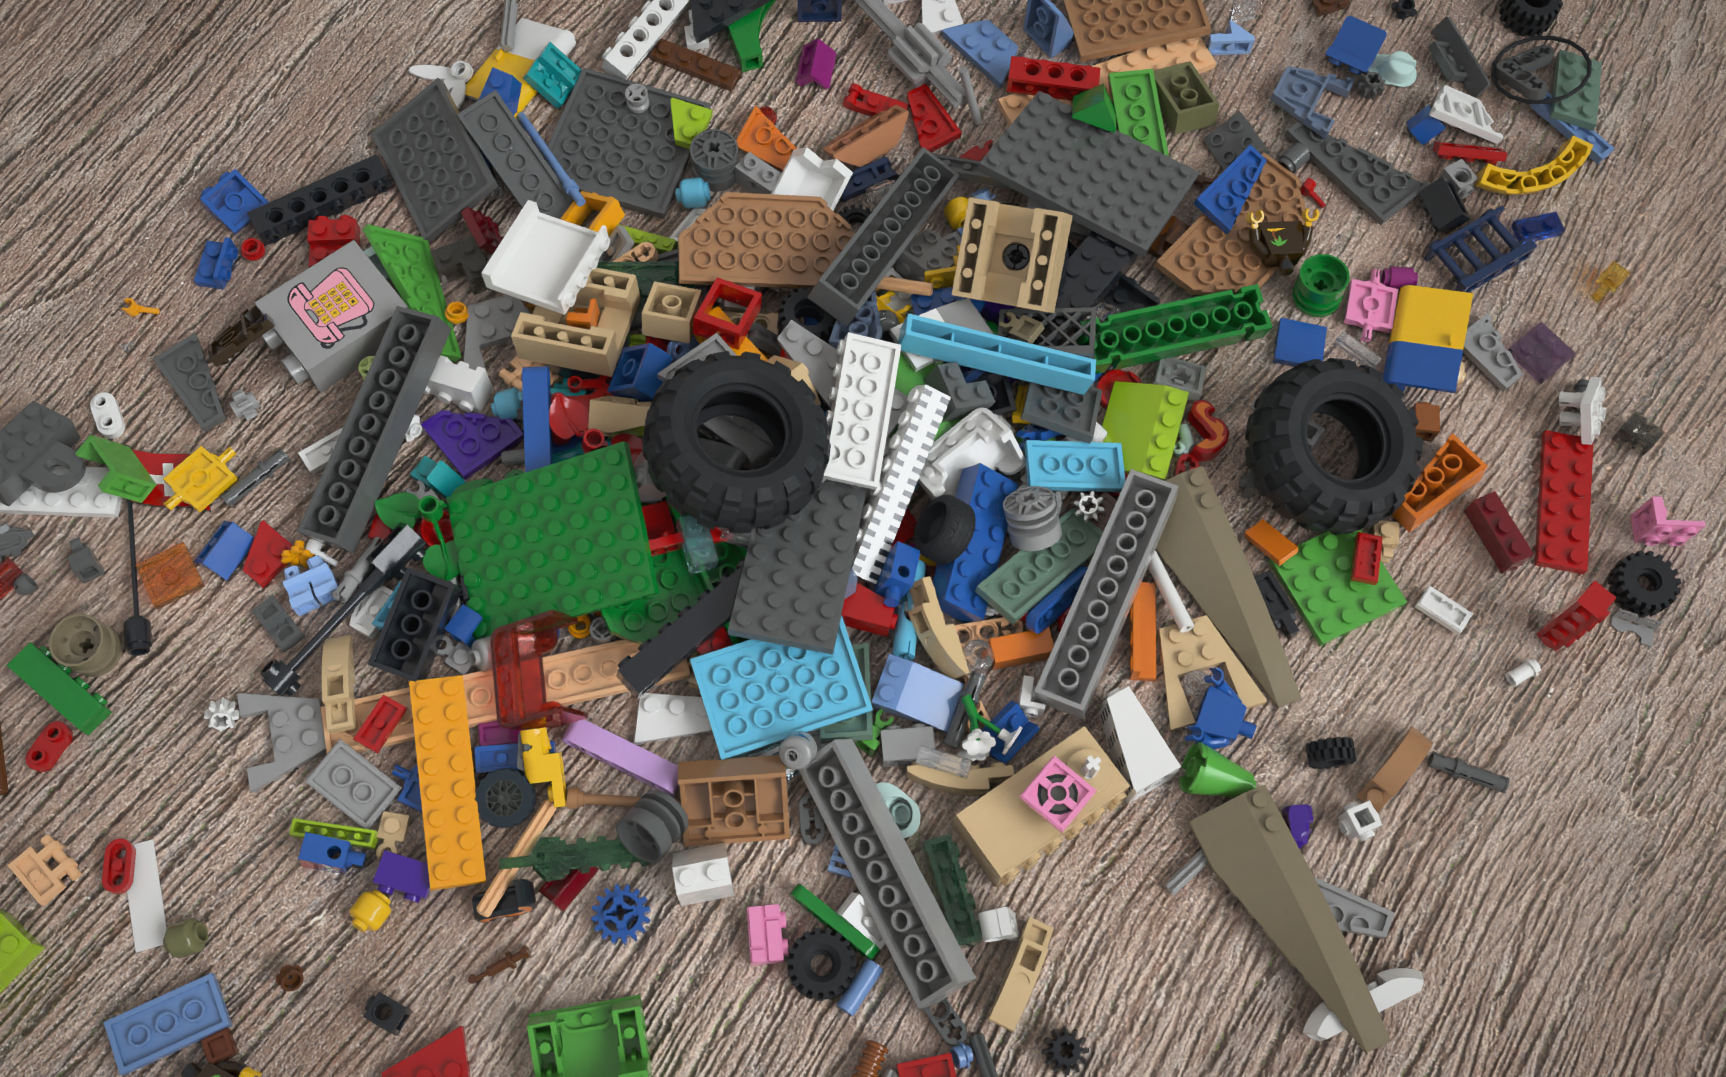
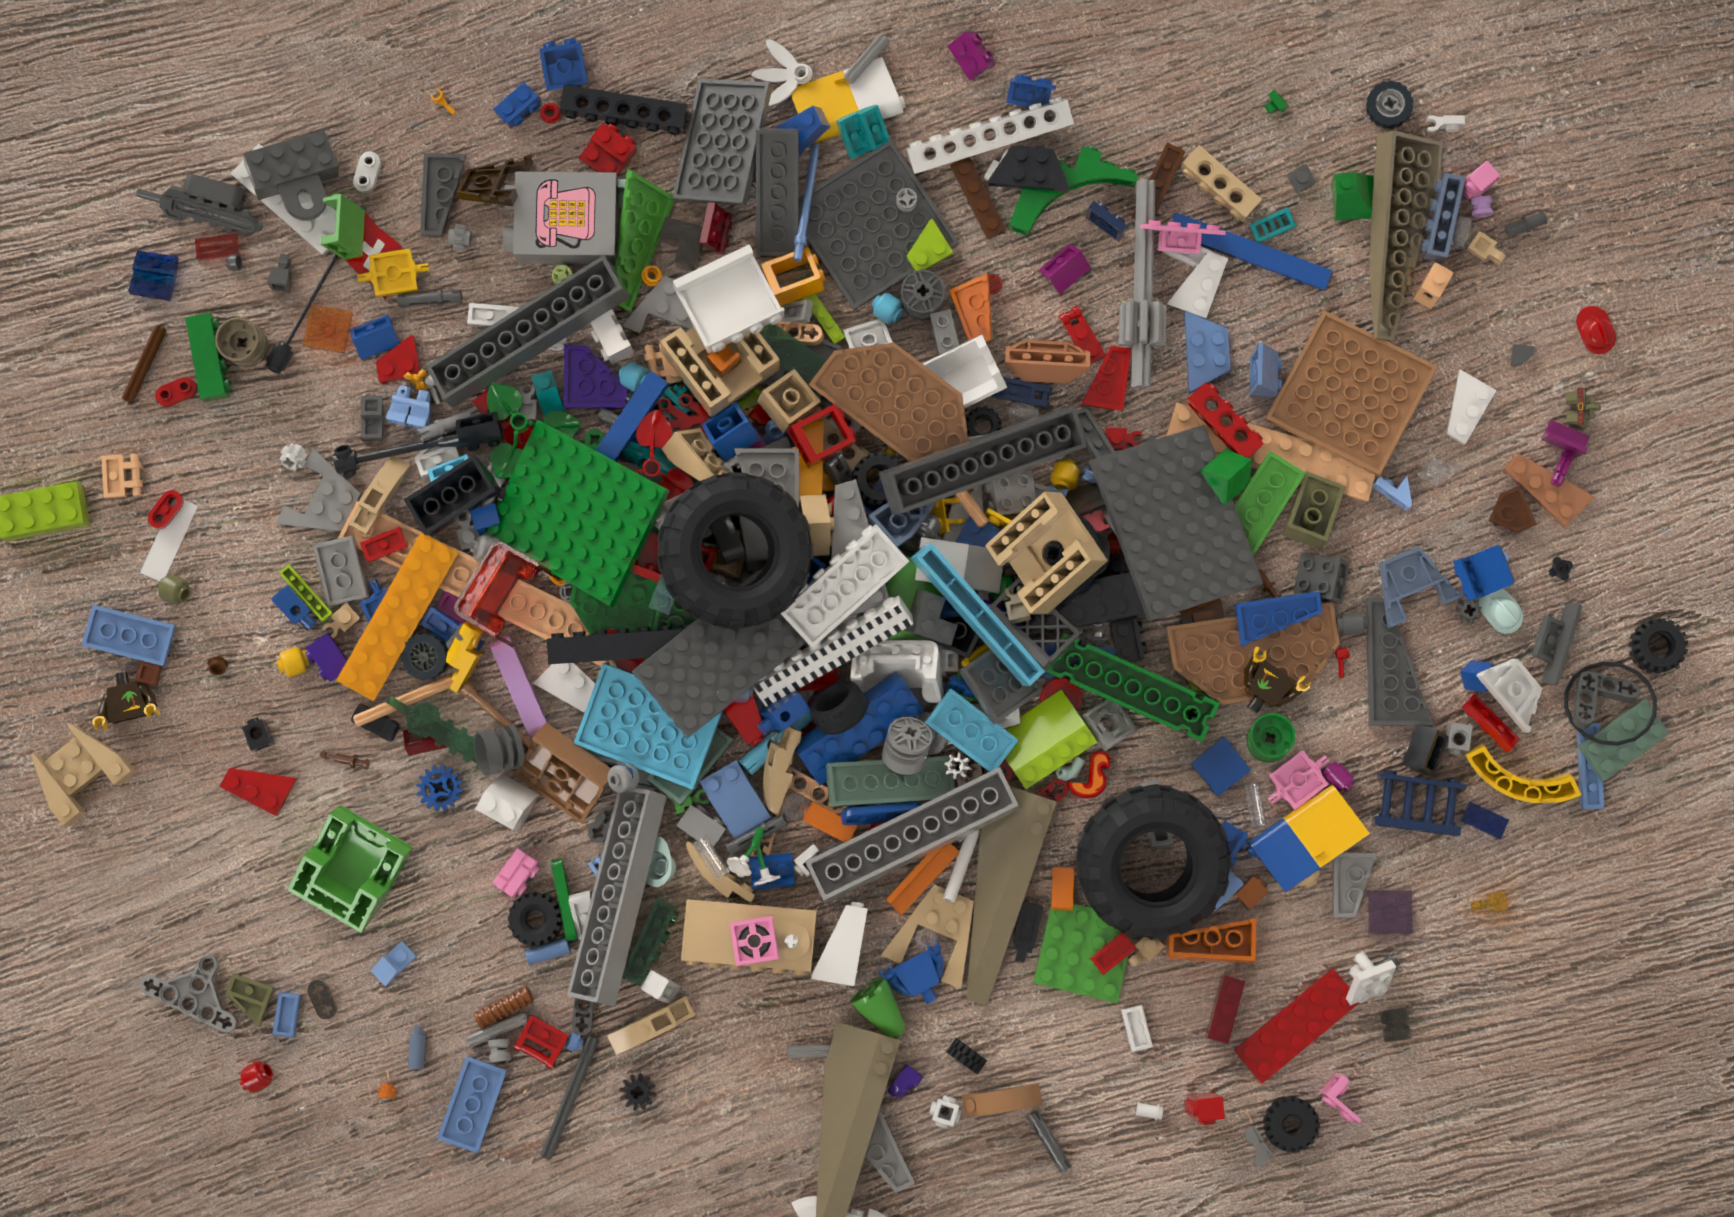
camera: 45 degrees right, 15 degrees up
(970, 95) = (1147, 390): light grey bar -> none

